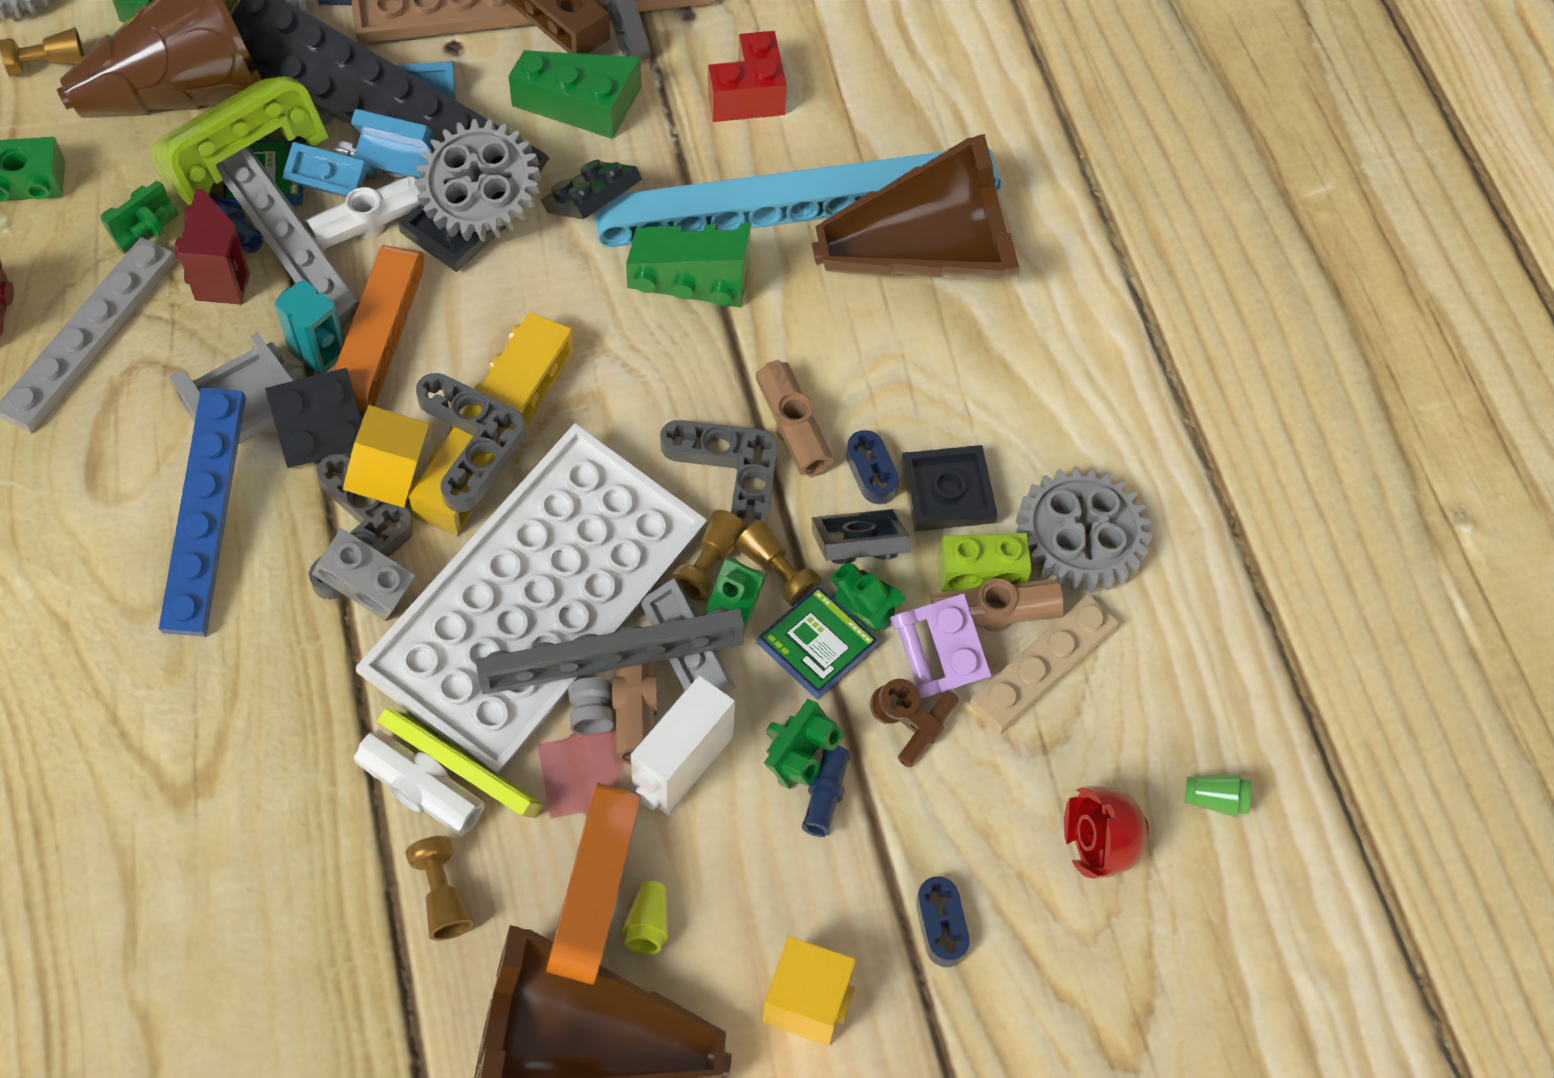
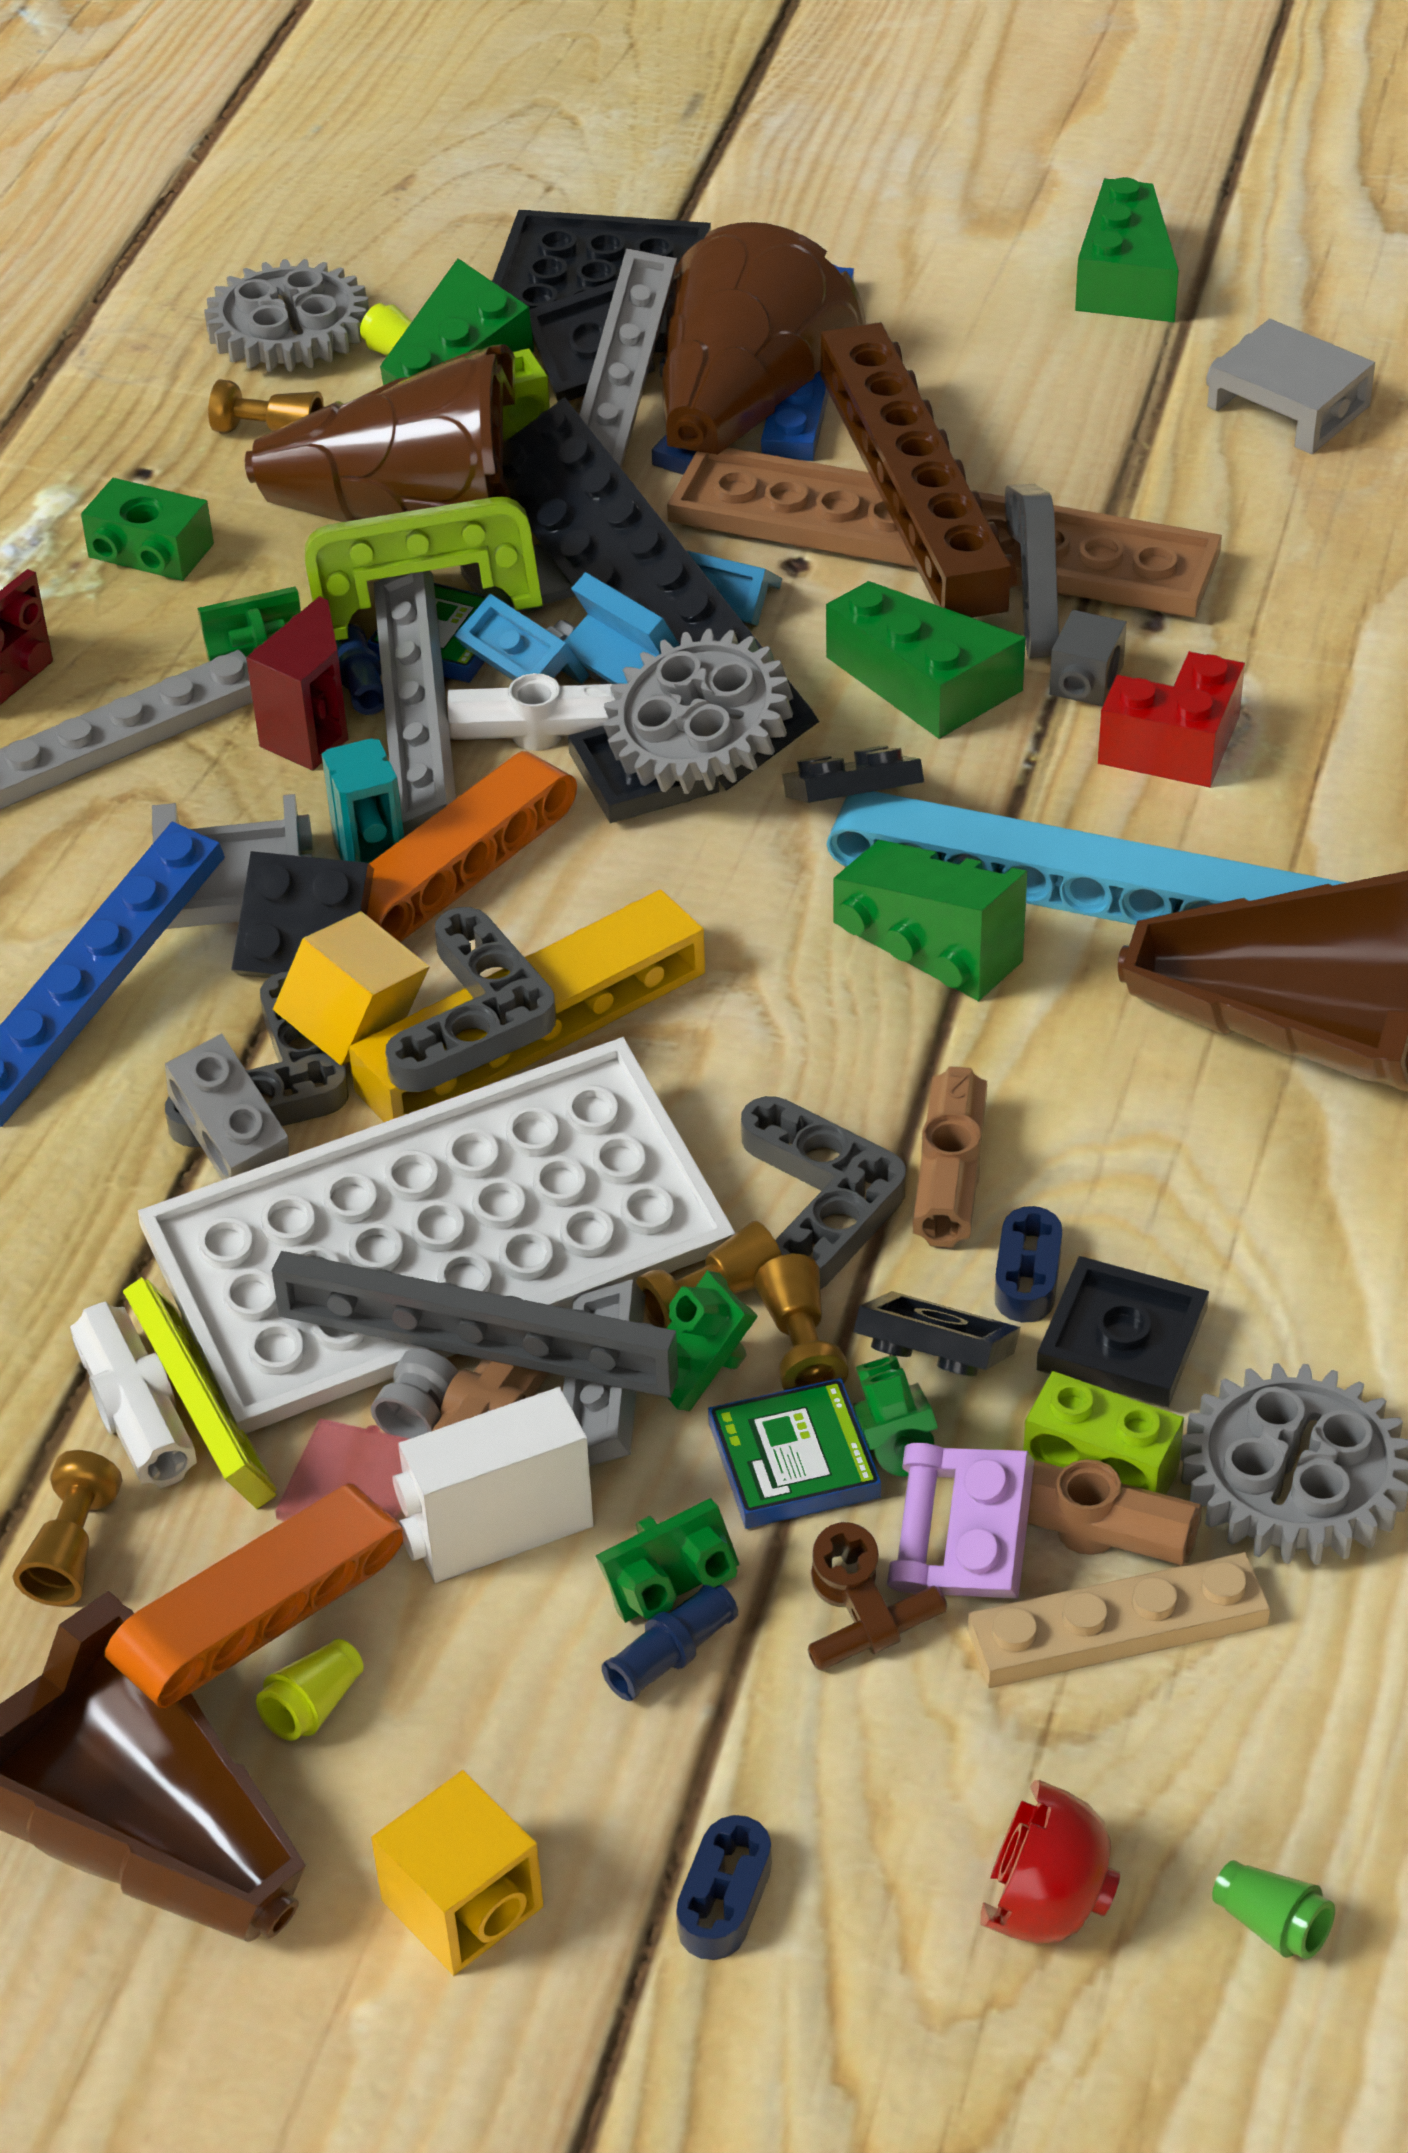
camera: 35 degrees right, 15 degrees down
(673, 54) = (1087, 657): none -> dark grey brick

